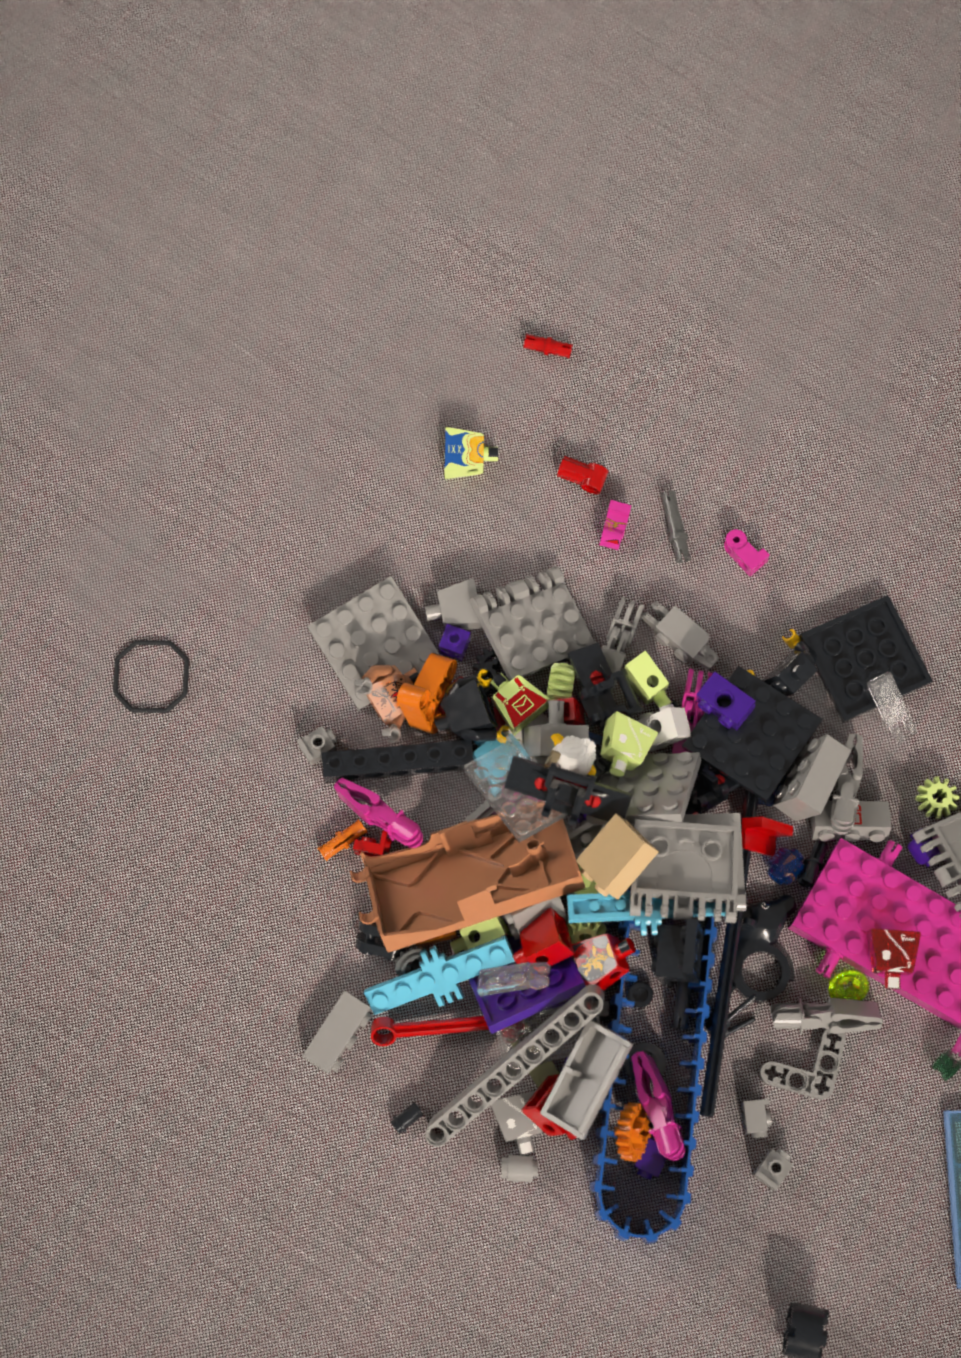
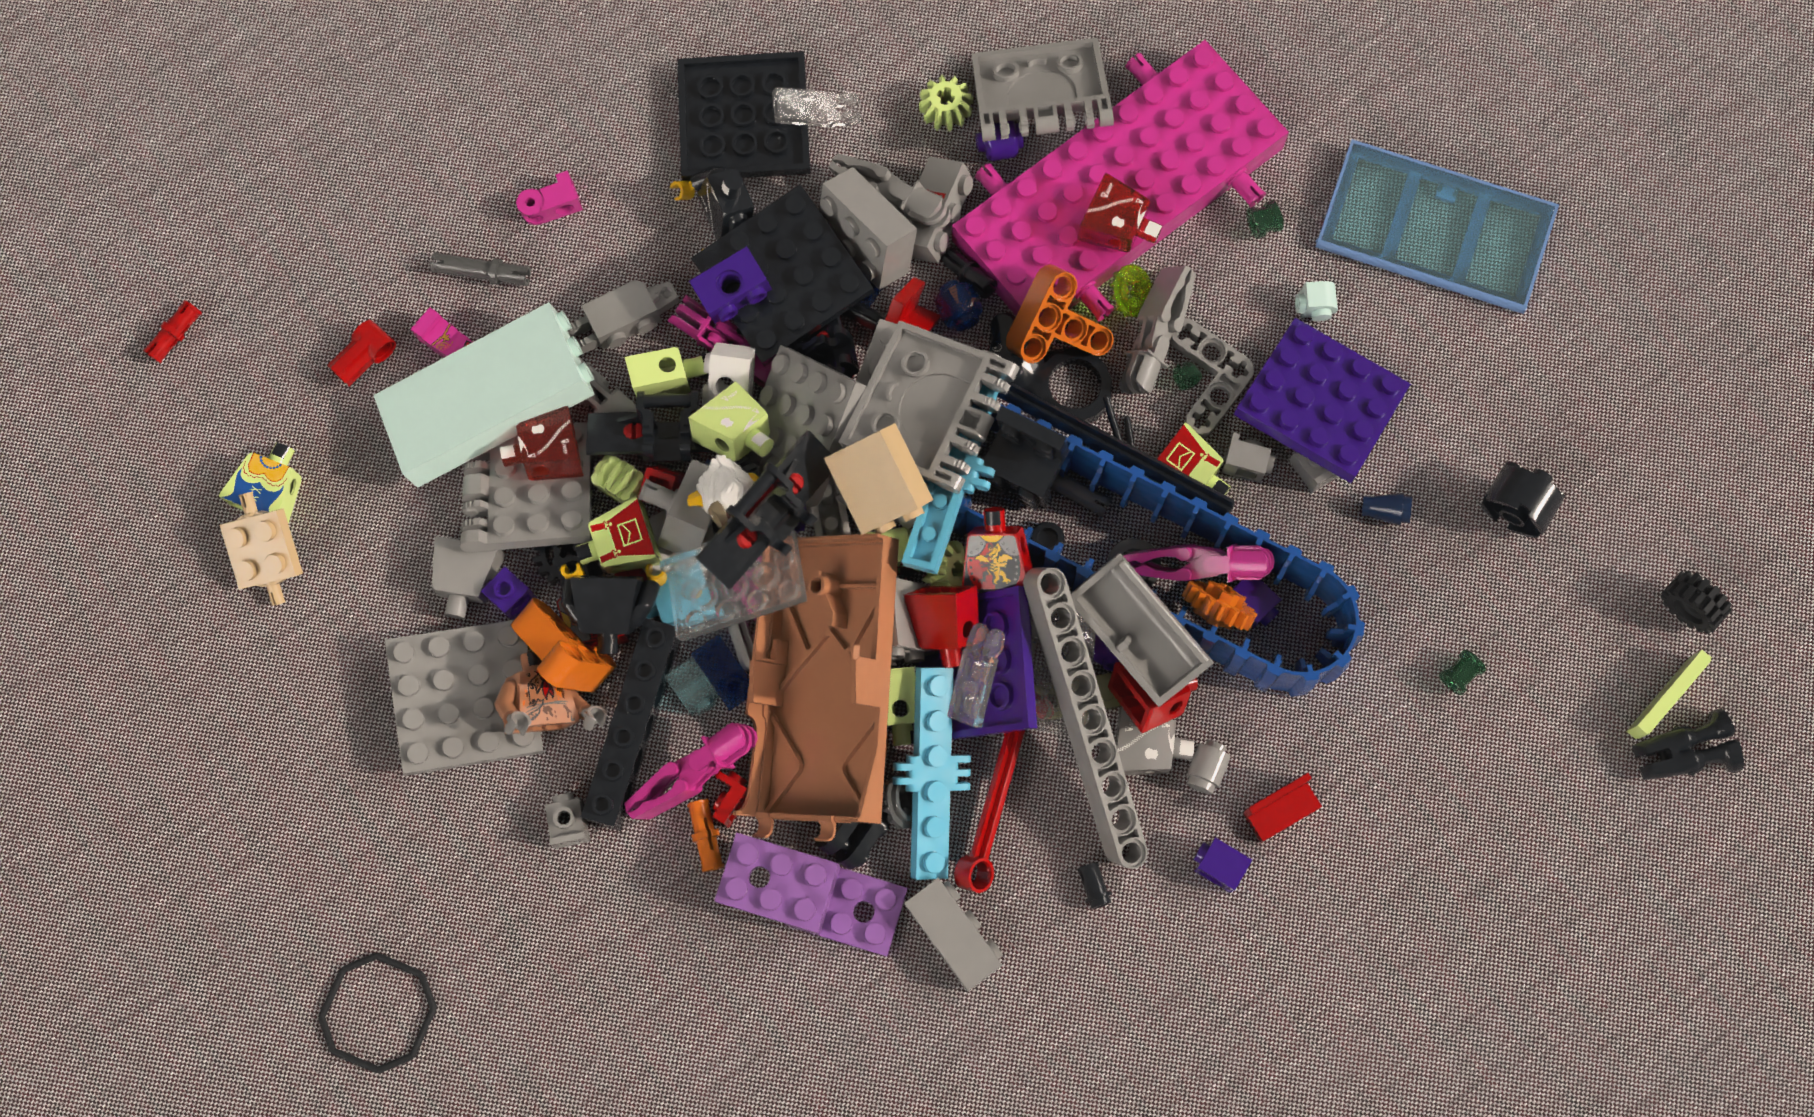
camera: 65 degrees left, 0 degrees up
(327, 926) = (811, 894): none -> medium lavender bracket
(421, 470) = (261, 548): none -> tan plate
(438, 790) = (692, 687): none -> clear light blue brick
(454, 1201) = (1221, 864): none -> dark purple brick
(458, 806) = (723, 671): none -> clear blue slope
(510, 1233) = (1282, 808): none -> red panel
(562, 625) = (546, 447): none -> clear red torso
(584, 568) = (483, 393): none -> light aqua brick
(659, 1331) = (1462, 672): none -> clear green bush
(735, 1078) = (1195, 458): none -> torso
(761, 1235) = (1389, 508): none -> dark blue cone
(793, 937) = (1054, 319): none -> orange beam
(801, 1051) = (1186, 376): none -> clear green hinge
(822, 1156) = (1322, 400): none -> dark purple plate
(899, 1127) = (1317, 300): none -> light aqua plate

